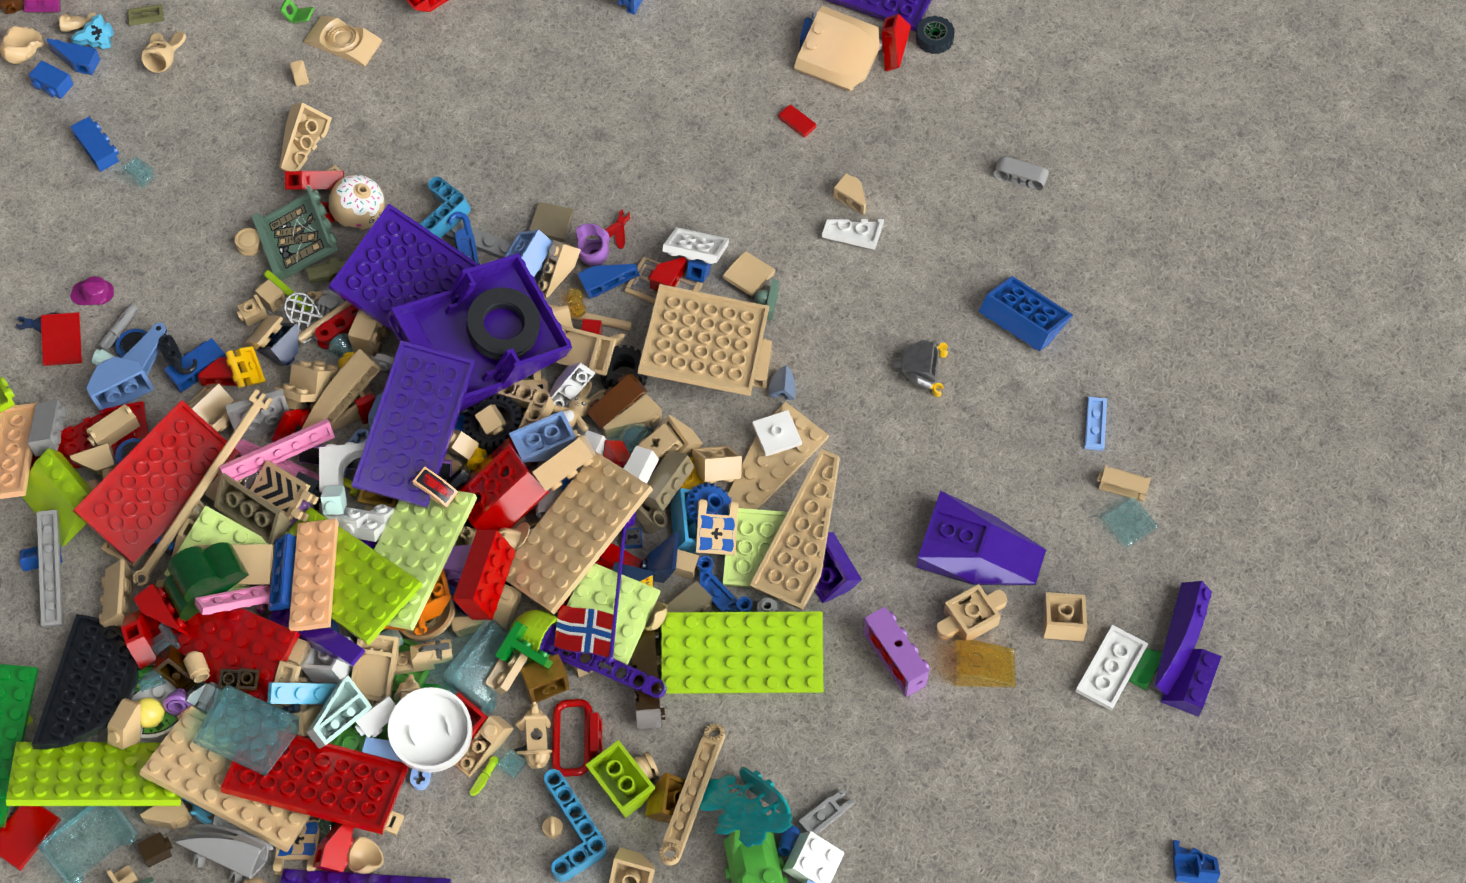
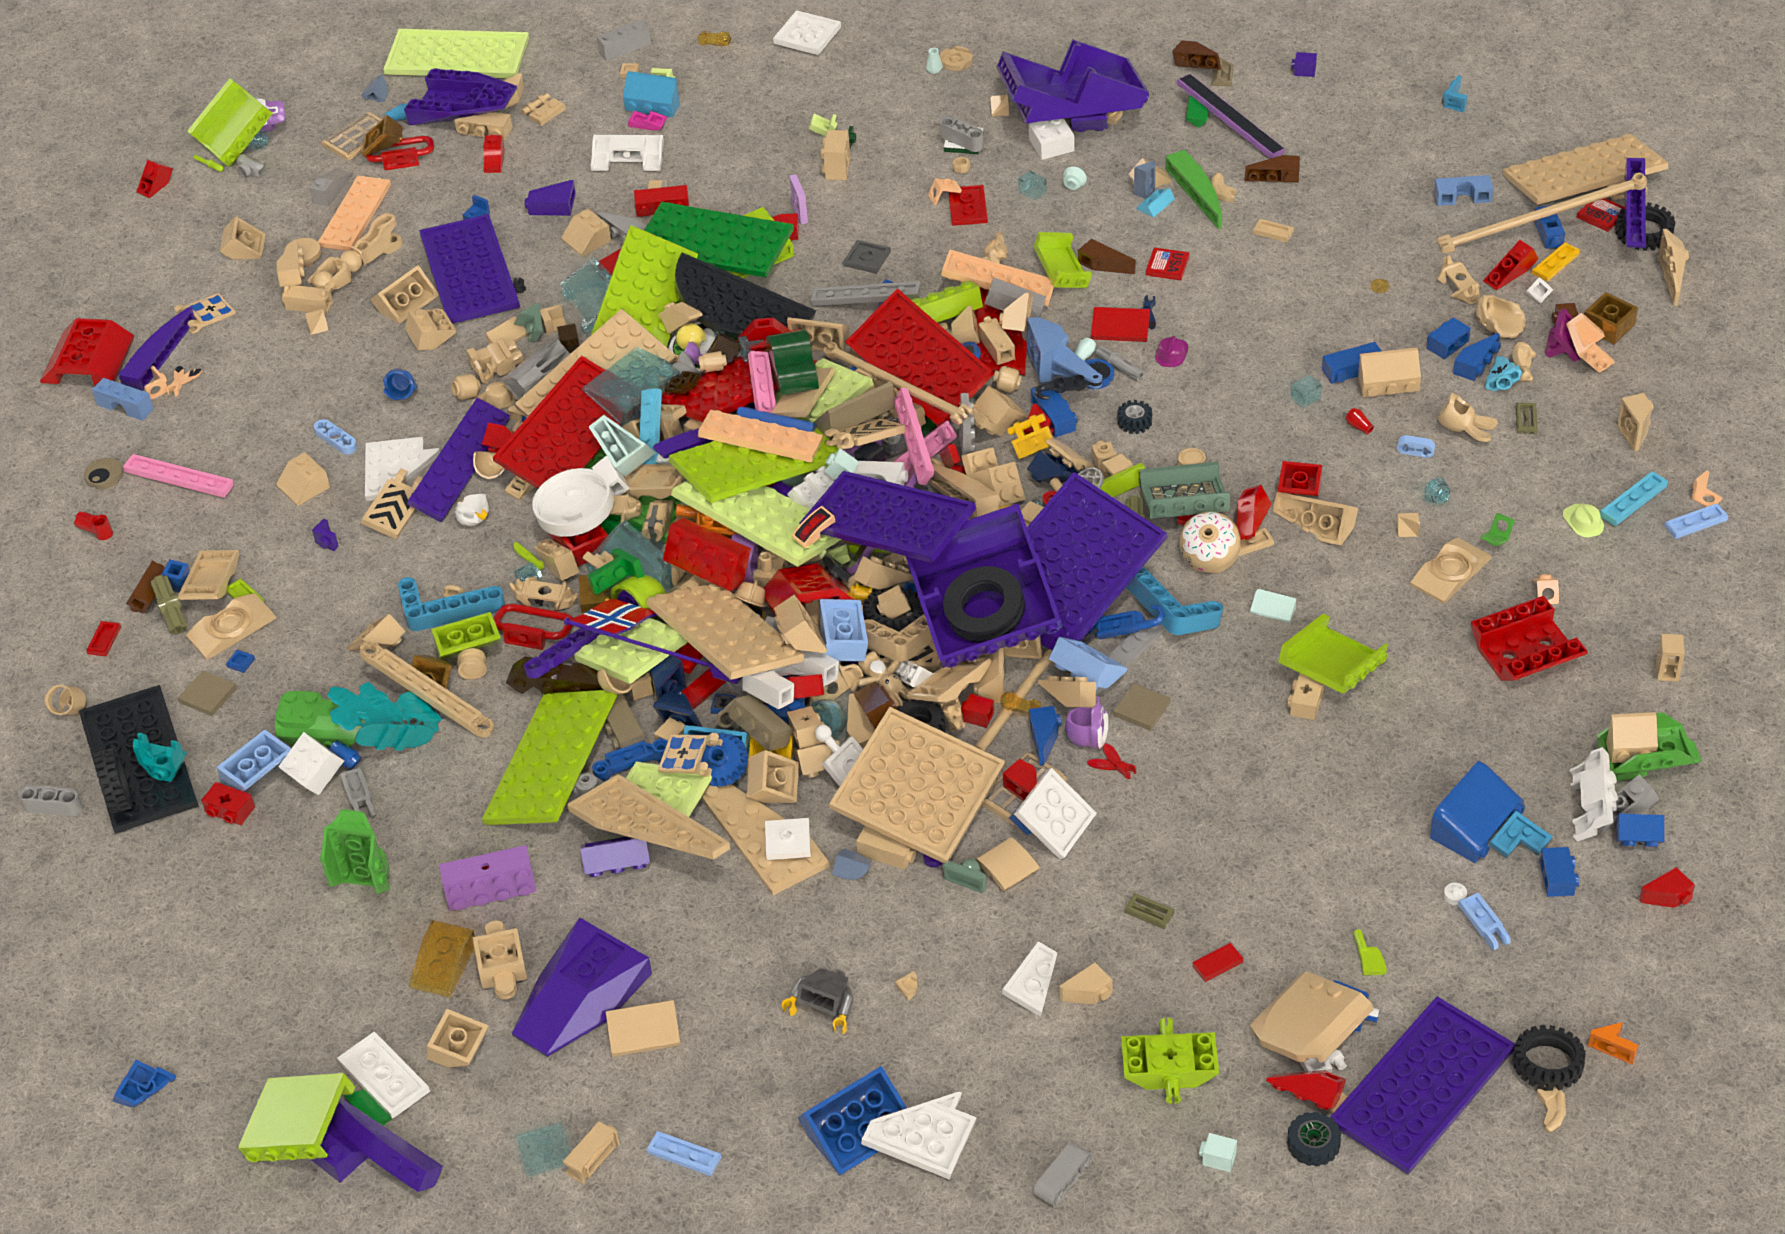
camera: 110 degrees right, 15 degrees down
(81, 406) = (1016, 314): none -> tan slope
(112, 110) = (1389, 372): none -> tan slope
(157, 411) = (1007, 379): none -> tan head
(170, 129) = (1358, 420): none -> red cone
(195, 292) = (1134, 416): none -> black wheel
(199, 81) = (1416, 446): none -> light blue beam
(255, 58) = (1437, 491): none -> clear light blue cone
(267, 151) = (1300, 478): none -> red slope
(414, 151) = (1273, 605): none -> light aqua slope
(438, 847) = (472, 509): none -> white hair
(472, 93) = (1330, 656): none -> lime panel
(513, 108) = (1306, 697): none -> tan brick
(683, 409) = (843, 756): none -> white plate
(759, 185) = (1147, 913): none -> olive tile
(760, 31) = (1370, 957): none -> lime piece
(887, 316) = (907, 985): none -> tan tile
(901, 124) = (1170, 1060): none -> lime slope
(915, 755) = (352, 853): none -> bright green slope
(968, 84) = (1218, 1152): none -> light aqua brick
(996, 486) = (643, 1028): none -> tan tile
(1023, 263) = (924, 1135): none -> white wing
(1188, 706) = (293, 1117): none -> lime panel

